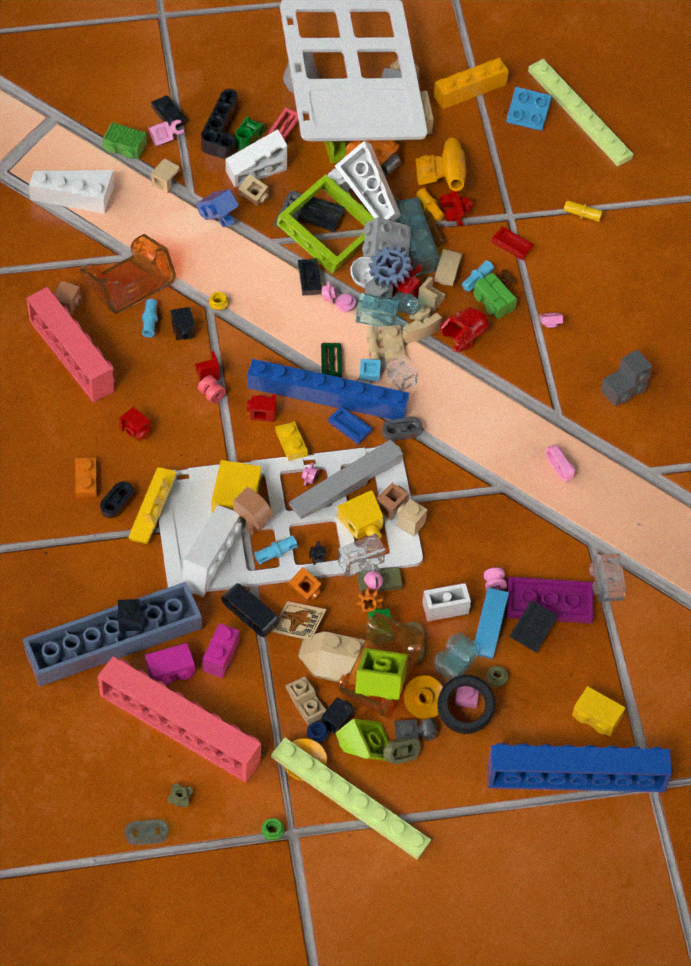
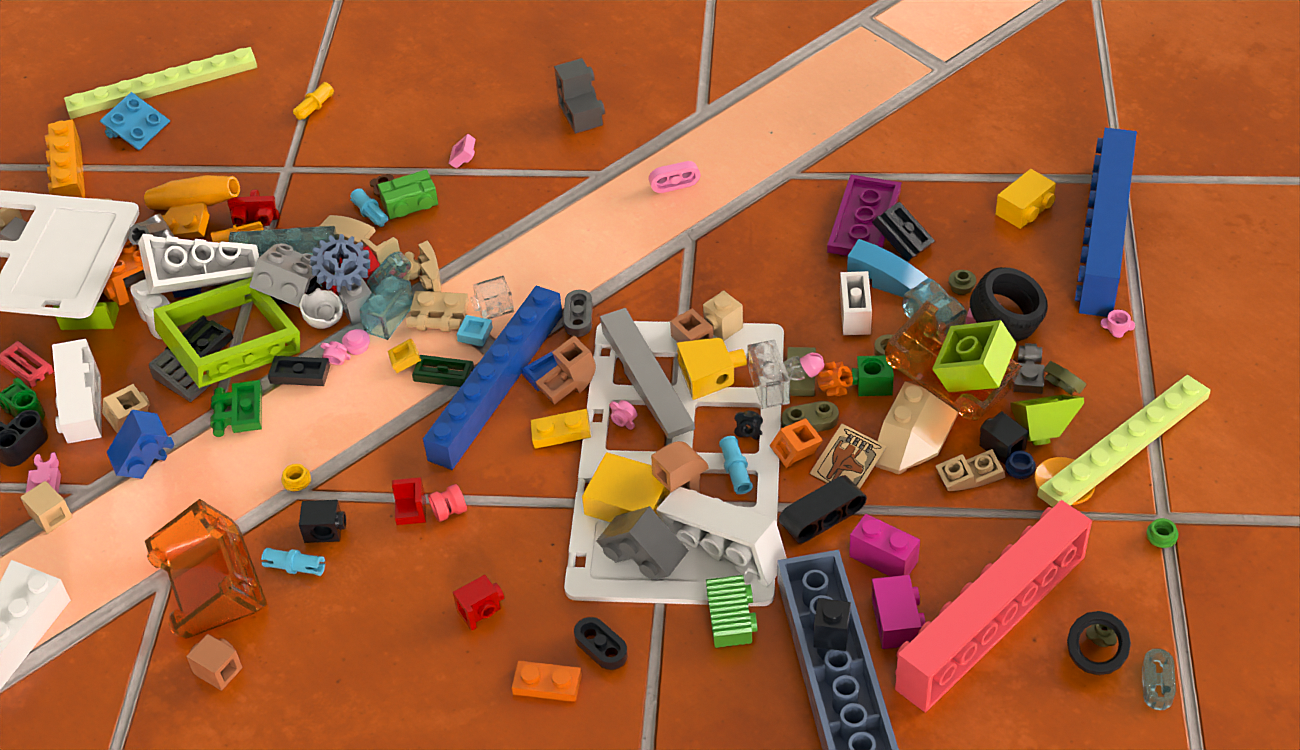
camera: 70 degrees left, 10 degrees down
(71, 344) = (309, 658): coral brick -> none
(149, 781) = (1112, 622): none -> black tyre
(151, 566) = (729, 611): none -> bright green brick
(152, 505) = (625, 594): yellow bracket -> none
(188, 503) = (644, 539): none -> dark grey brick
(190, 168) = (45, 471): none -> bright pink plate
(262, 407) = (498, 449): red brick -> none
(271, 256) = (245, 408): none -> green plate
(335, 591) = (821, 415): none -> olive plate
(336, 333) = (404, 355): none -> yellow tile
(337, 432) = (573, 371): none -> nougat brick
(405, 152) = (154, 226): none -> flat silver piece
(472, 323) = (449, 225): red helmet -> none
(479, 784) = (1118, 323): none -> bright pink plate
(495, 579) = (827, 258): bright pink wheel -> none
(512, 243) = (330, 171): red tile -> none
(608, 577) = (844, 158): clear brick -> none

